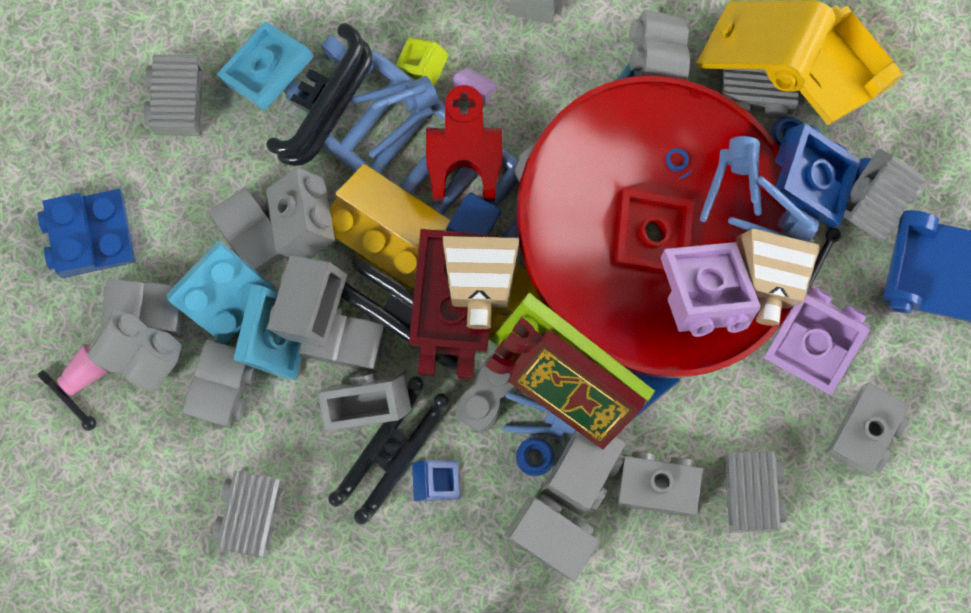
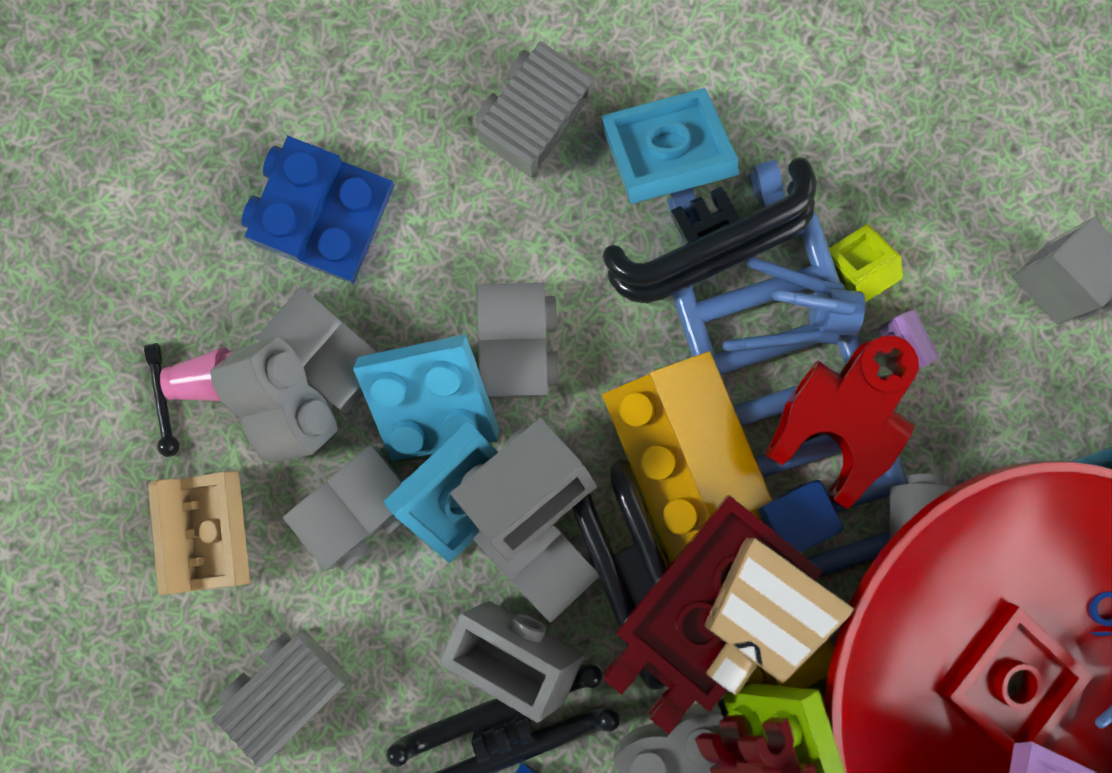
camera: 30 degrees right, 5 degrees up
(141, 455) = (198, 533): none -> tan bracket
(300, 214) = (588, 366): light grey brick -> none

